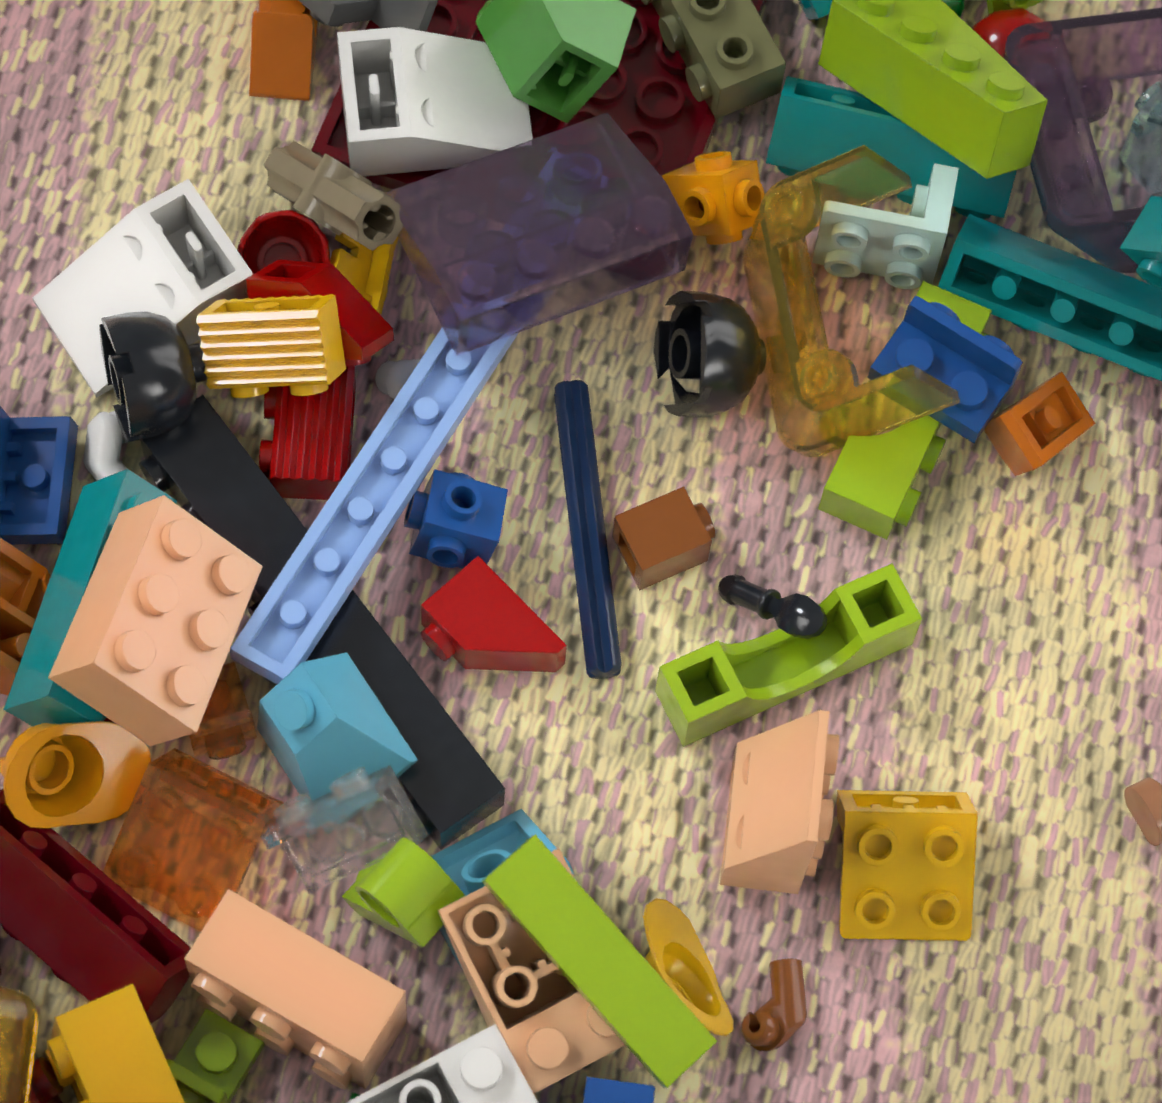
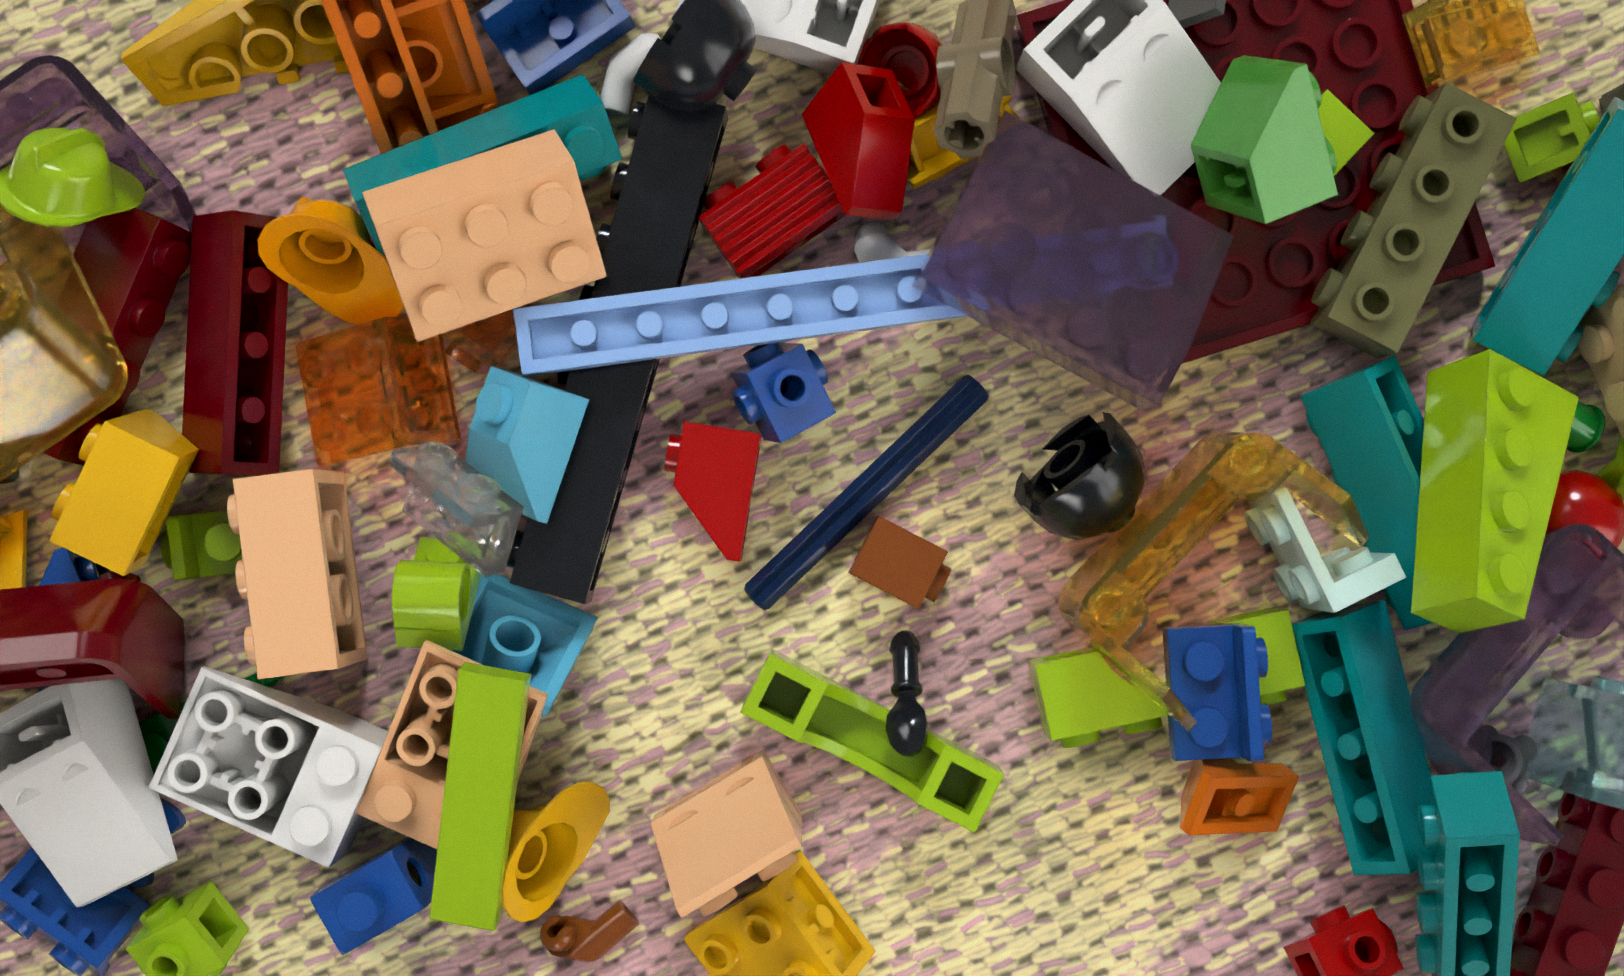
camera: 50 degrees right, 20 degrees up
(272, 344) = (797, 130): yellow brick -> none
(717, 195) = (1230, 381): light orange brick -> none

